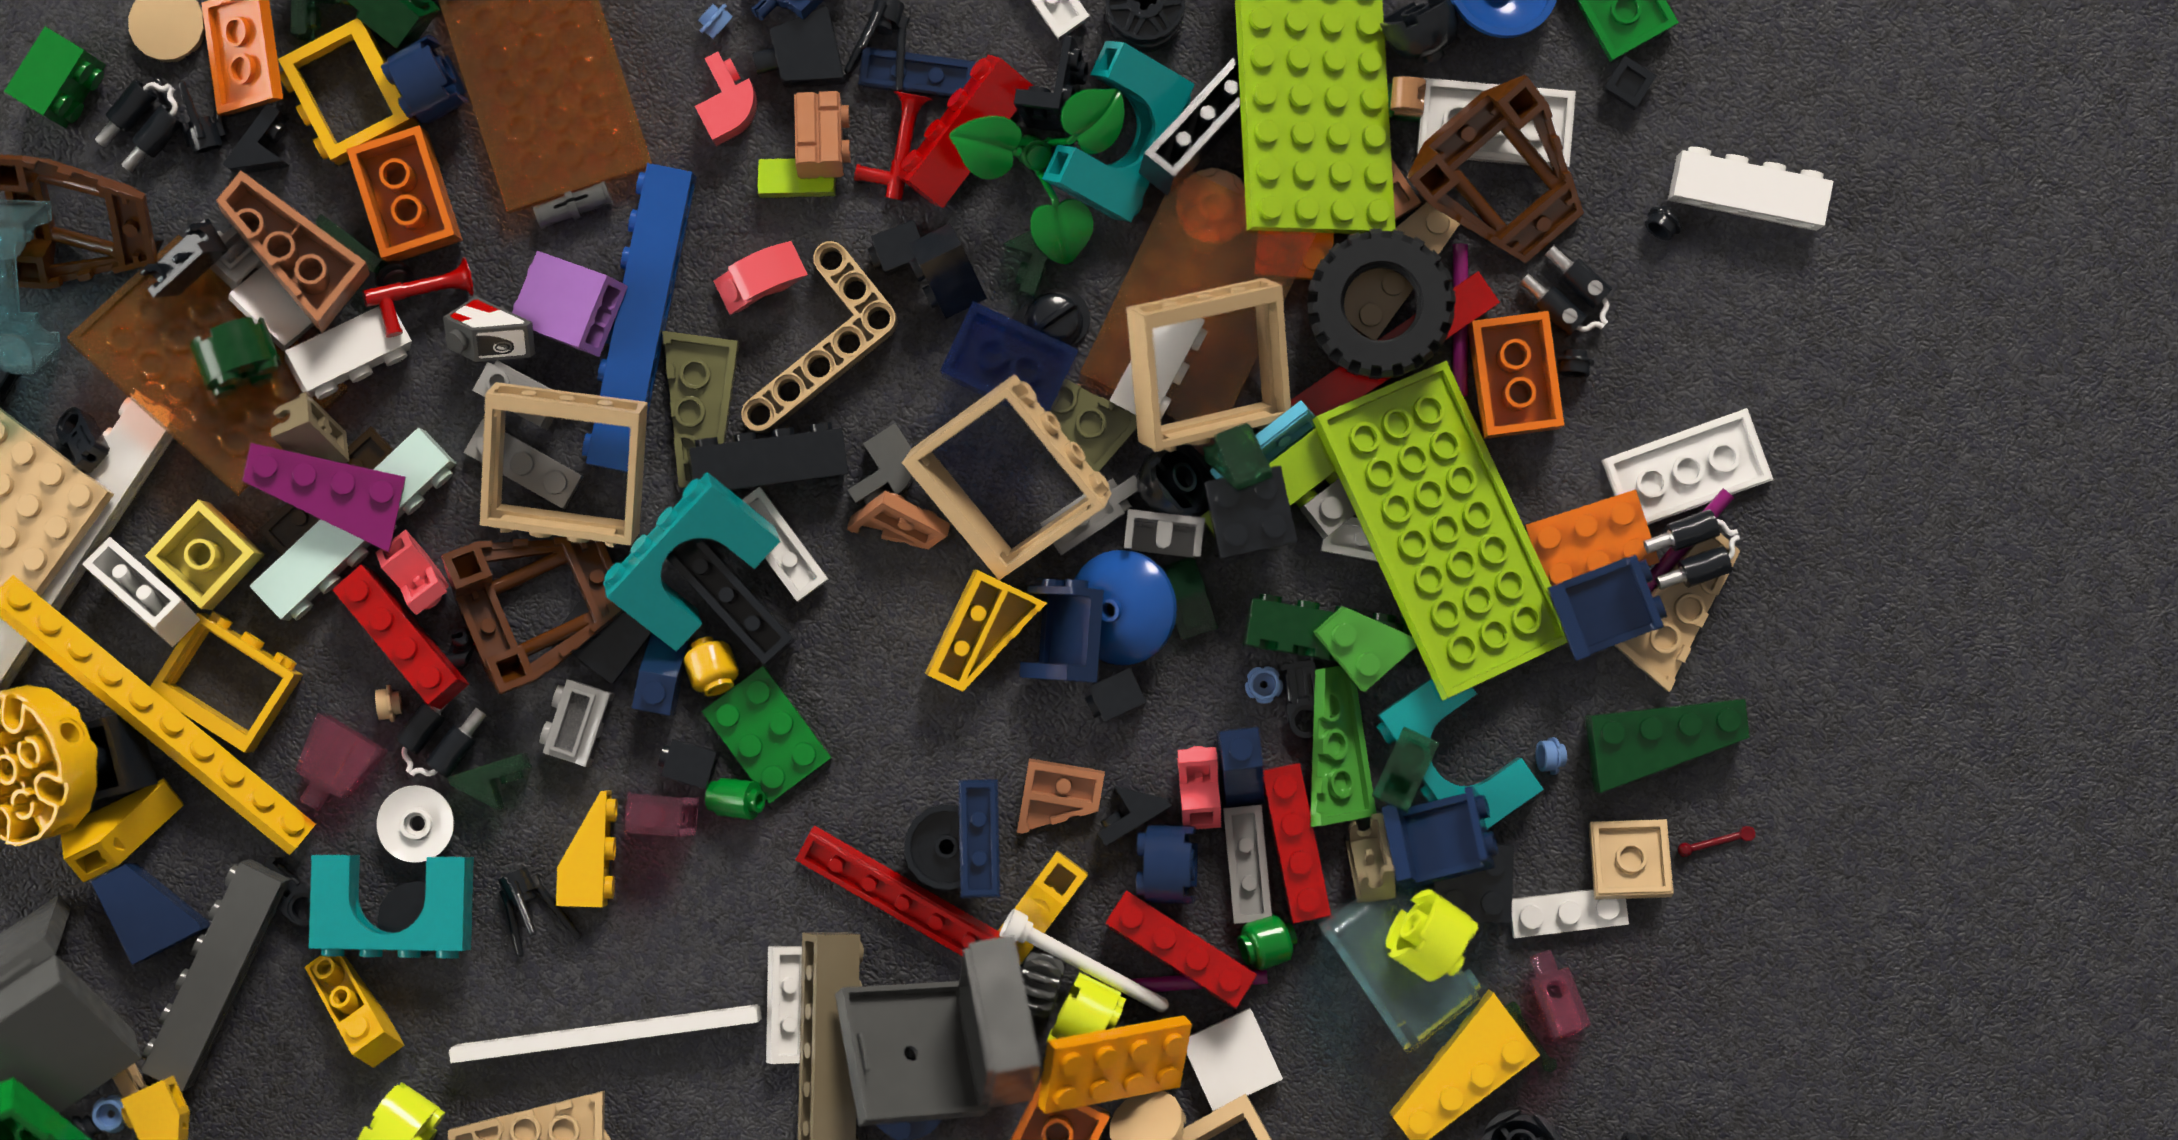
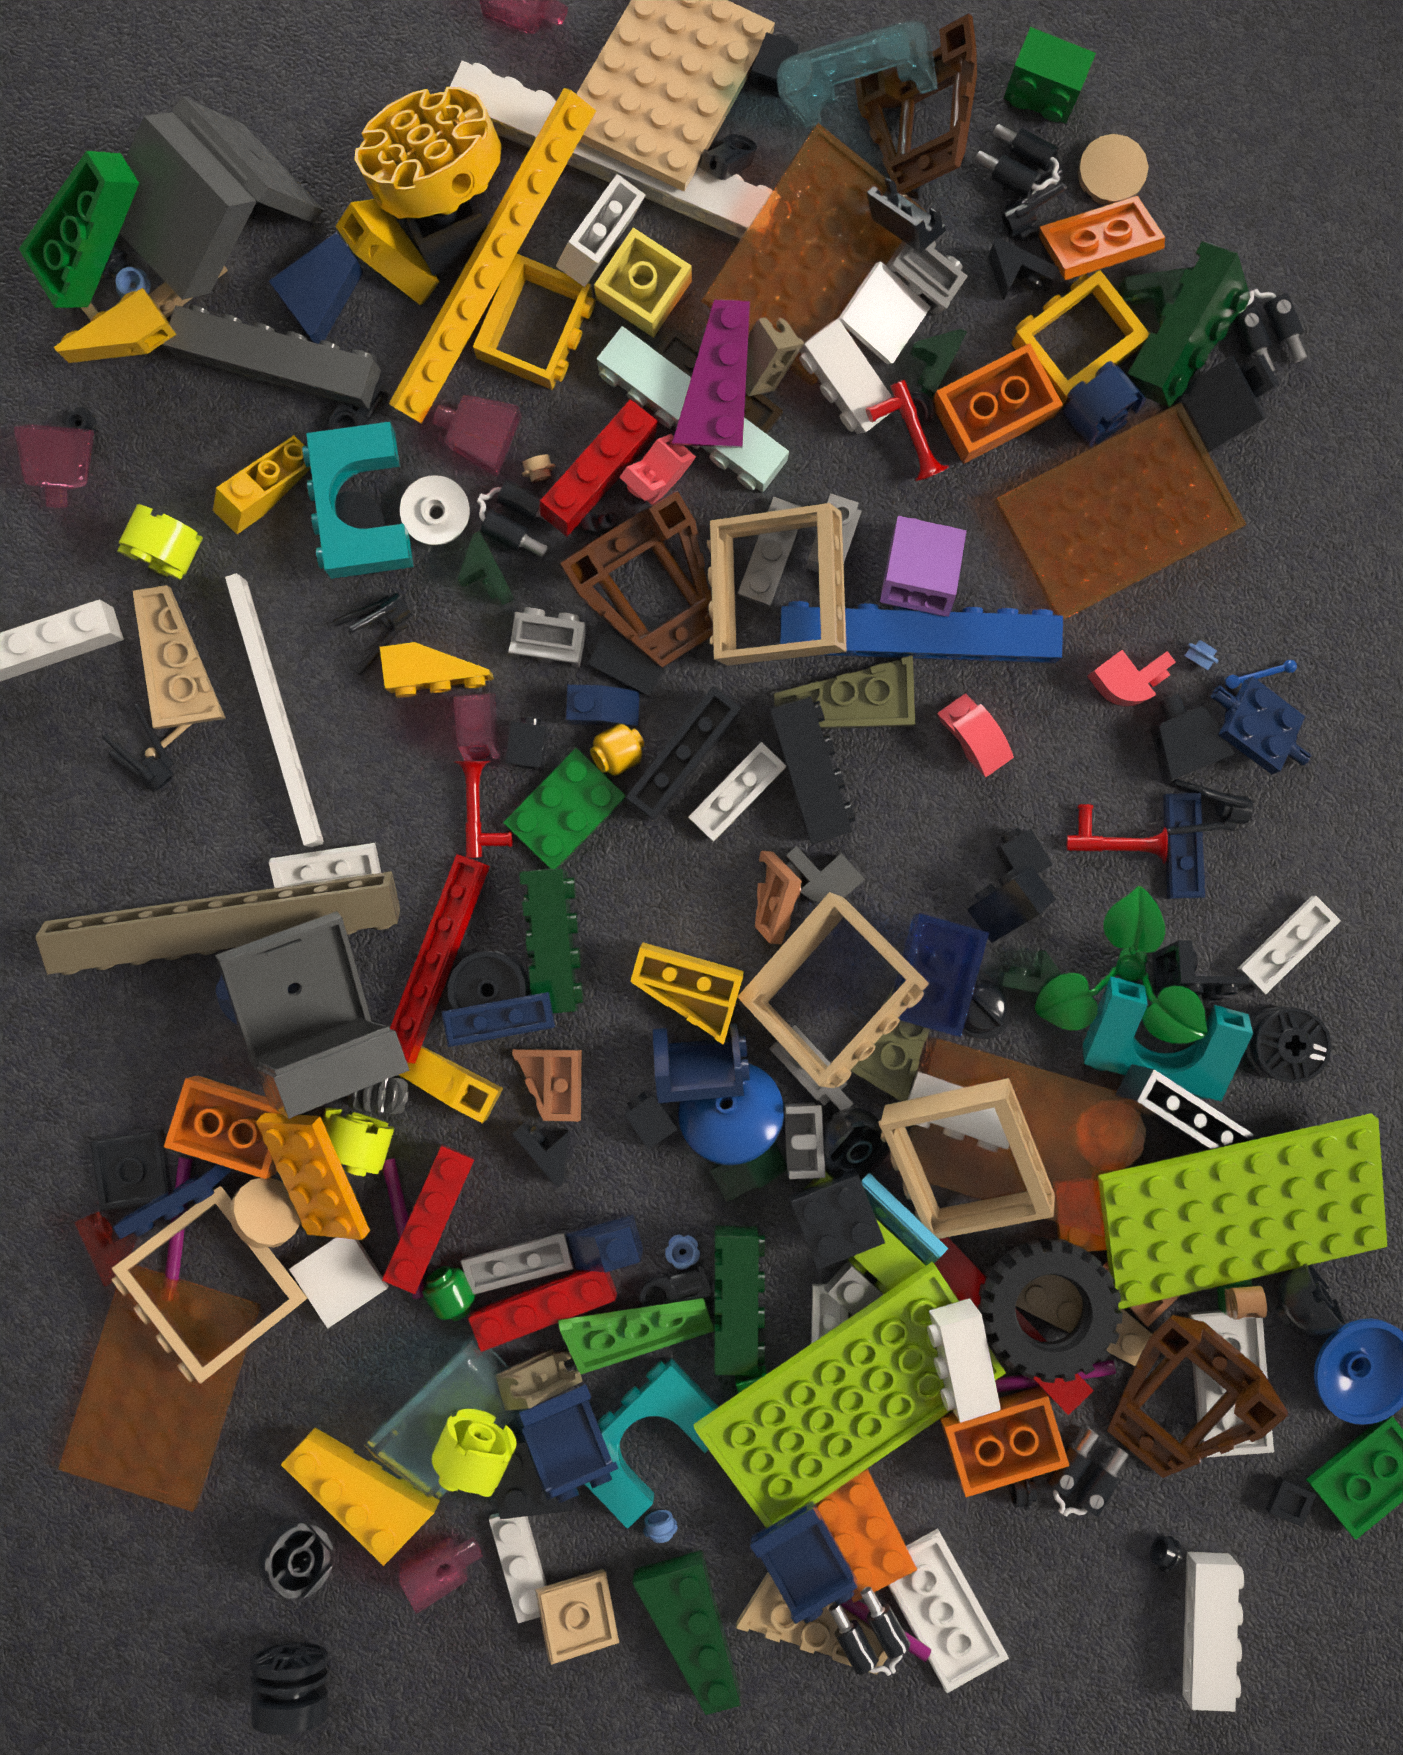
camera: 80 degrees right, 0 degrees up
(236, 356) = (826, 274): dark green brick -> none
(300, 255) = (924, 321): nougat wedge -> none
(488, 332) = (885, 498): slope -> none
(573, 205) = (1012, 556): dark grey pin -> none
(703, 512) = (754, 719): teal arch -> none
(735, 798) = (502, 791): green brick -> none
(779, 837) = (474, 837): none -> red piece
(780, 179) = (1071, 752): lime slope -> none
(820, 134) = (1115, 766): nougat brick -> none
(829, 347) = (921, 807): tan beam -> none
(901, 771) = (551, 938): none -> dark green wedge
(936, 166) = (1107, 879): red brick -> none
(1022, 929) = (423, 1067): white piece -> none
(1168, 864) = (505, 1193): dark blue brick -> none
(1199, 787) = (578, 1209): coral brick -> none
(1238, 457) = (886, 1202): clear green slope -> none
(1363, 645) = (731, 1343): bright green wing -> none
(1405, 769) = (623, 1401): clear green slope -> none
(1420, 403) = (963, 1360): none -> white brick
(1549, 1063) = (380, 1570): hinge -> none
(1746, 833) = (618, 1715): dark red hinge -> none

